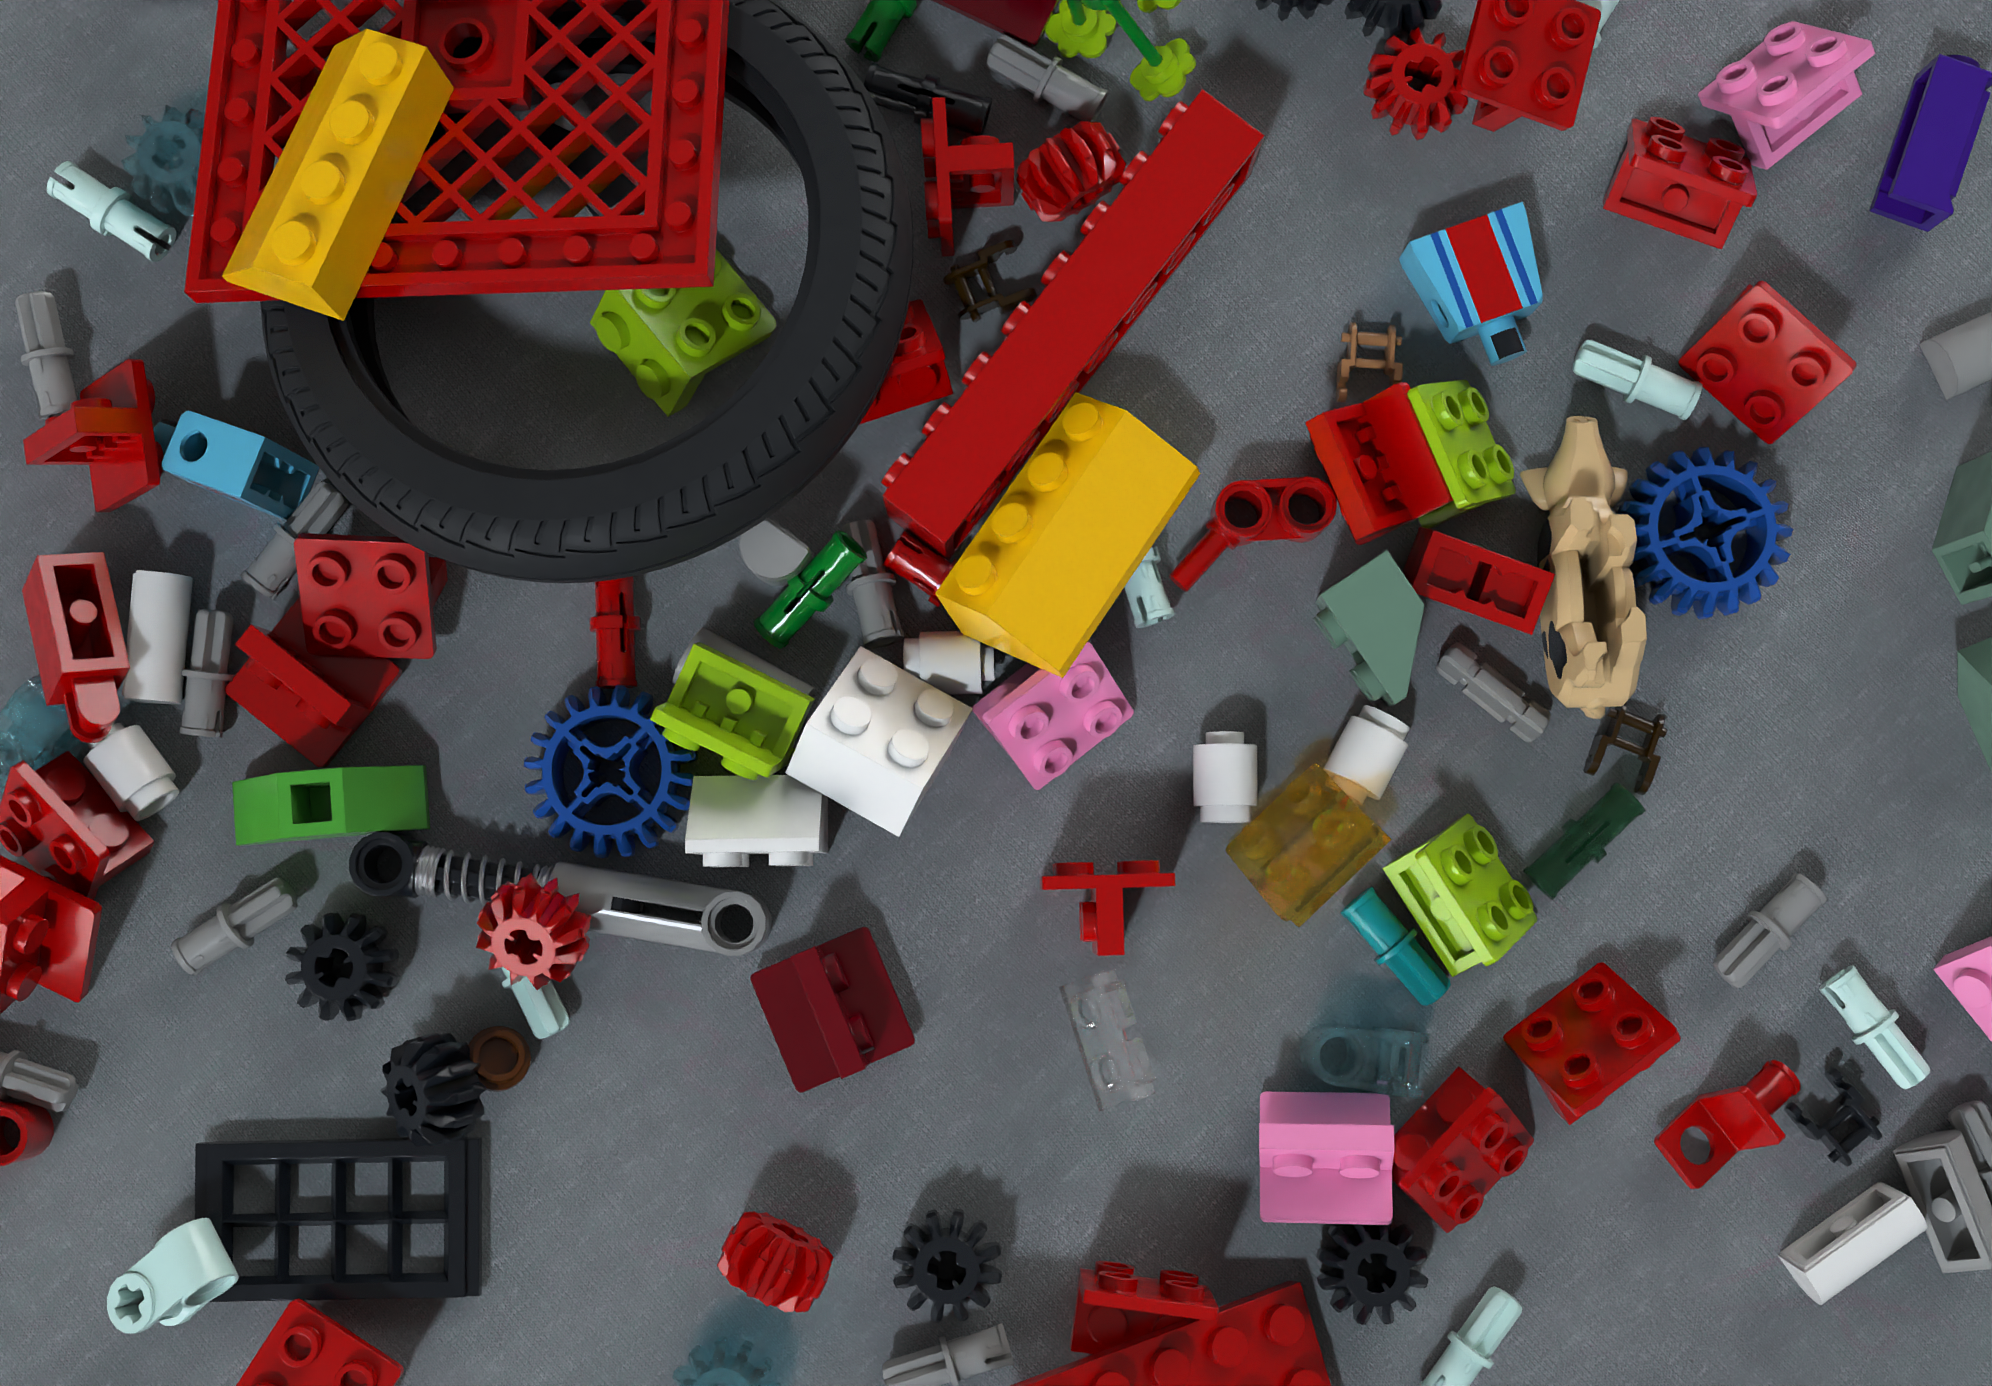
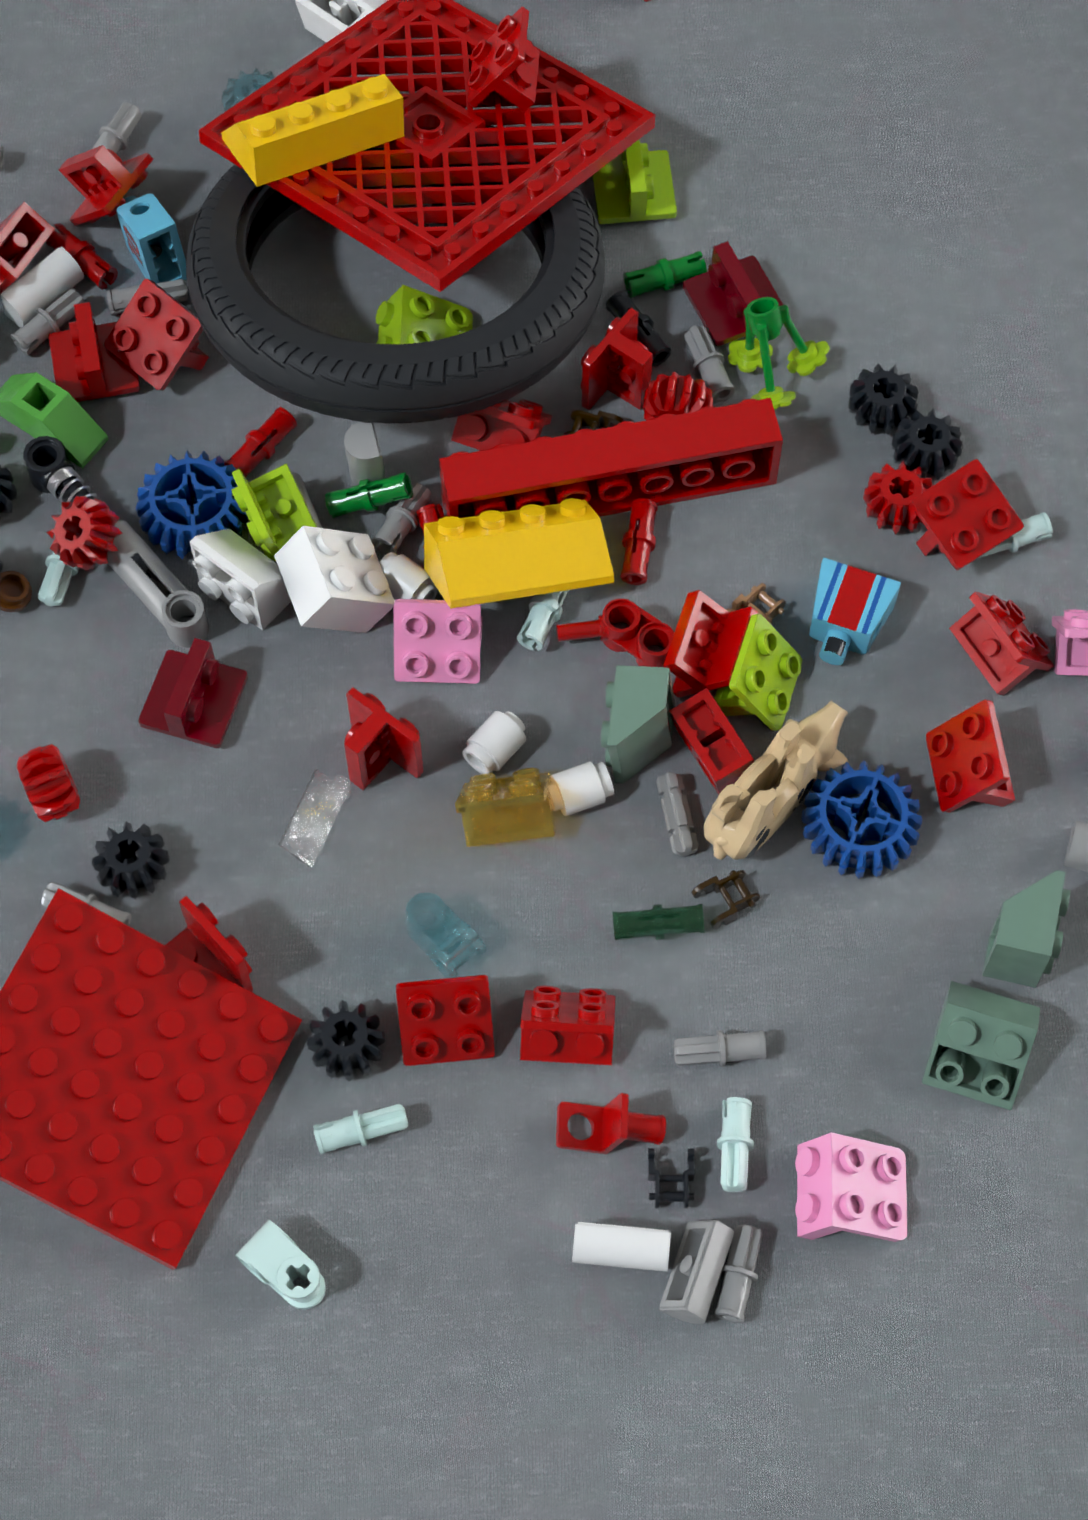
camera: 40 degrees right, 20 degrees down
(111, 211) = (202, 99): light aqua pin -> none
(164, 551) = (83, 252): none -> red pin
(1142, 350) = (639, 541): none -> red pin
(1326, 1158) = (370, 958): bright pink bracket -> none
(1396, 947) = (509, 895): teal axle -> none
(1463, 896) = (568, 893): lime bracket -> none
(1637, 378) = (894, 722): light aqua axle -> none

